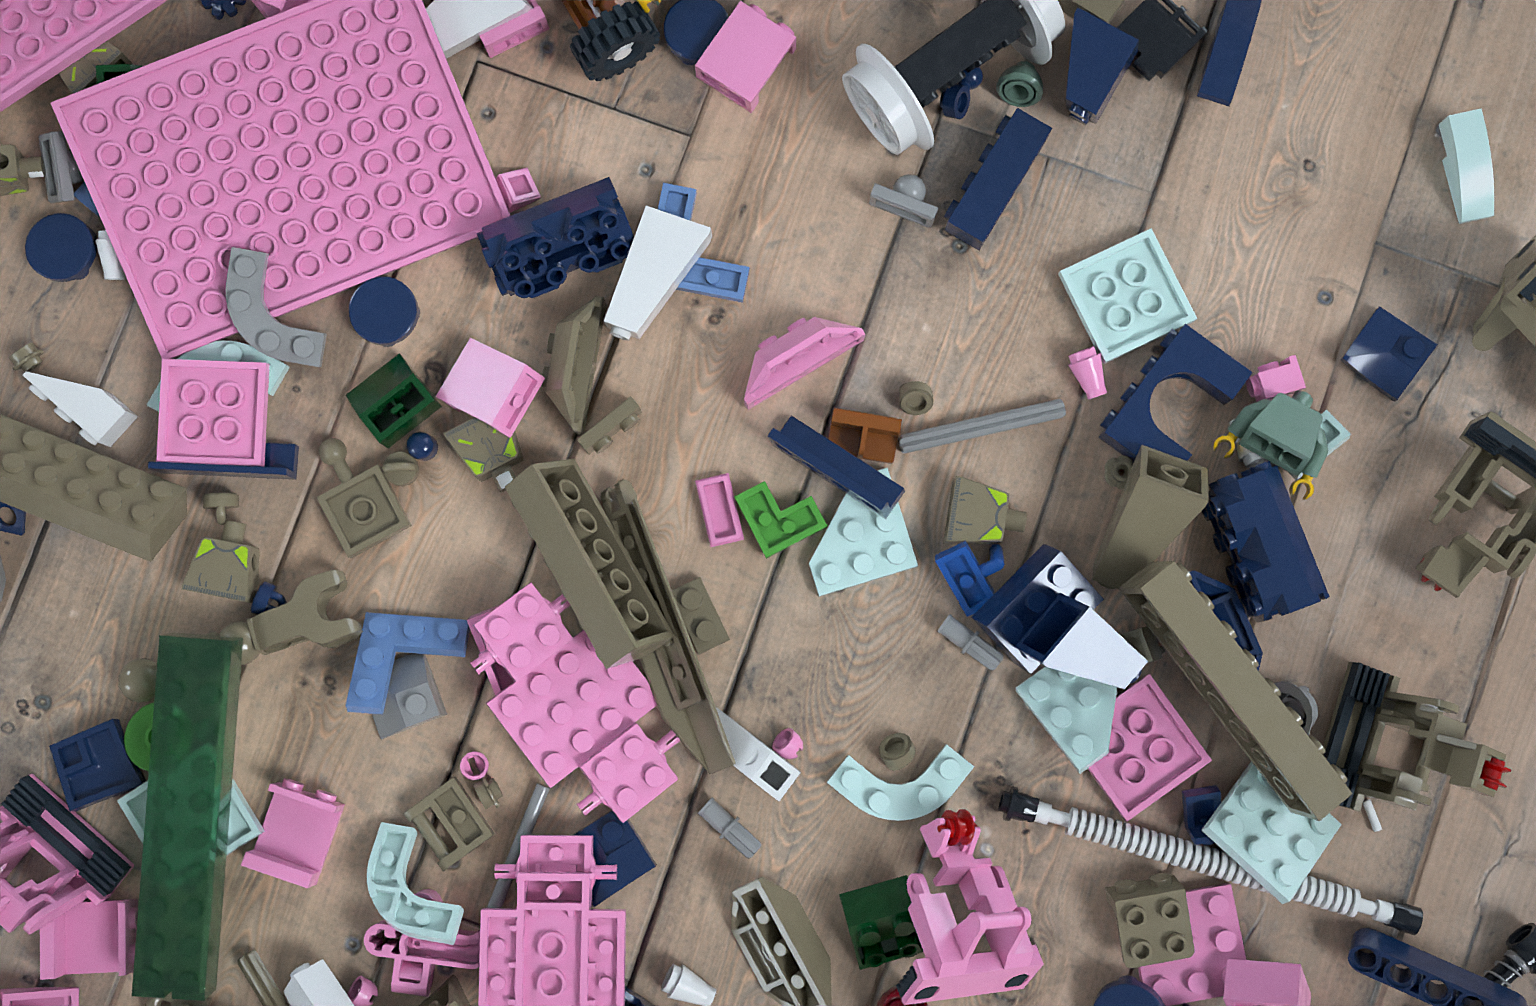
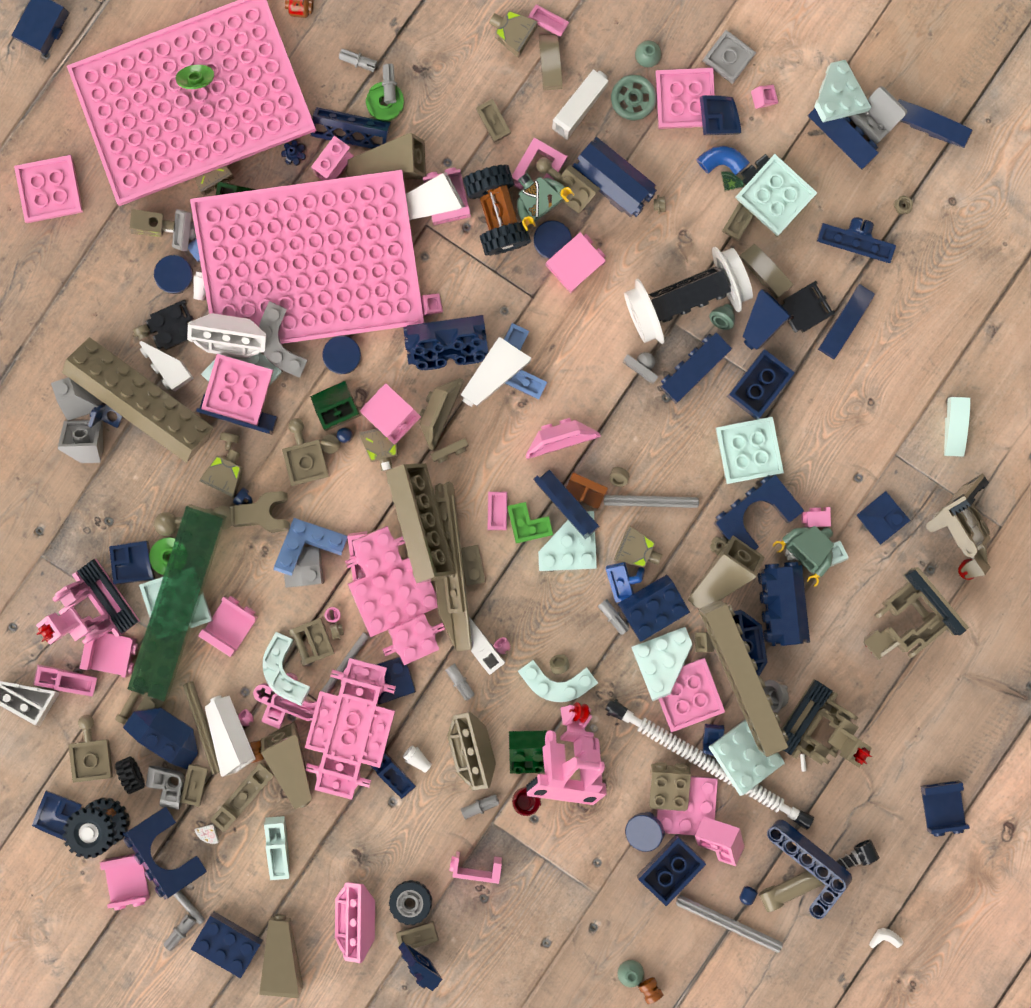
camera: 15 degrees right, 5 degrees up
(79, 336) = (170, 325): none -> black plate
(170, 323) = (227, 335): none -> white wedge
(956, 99) = (686, 319): dark blue plate -> none
(1082, 644) = (668, 635): slope -> none
(1088, 371) = (717, 486): bright pink cone -> none
(1116, 178) = (760, 384): none -> dark blue brick

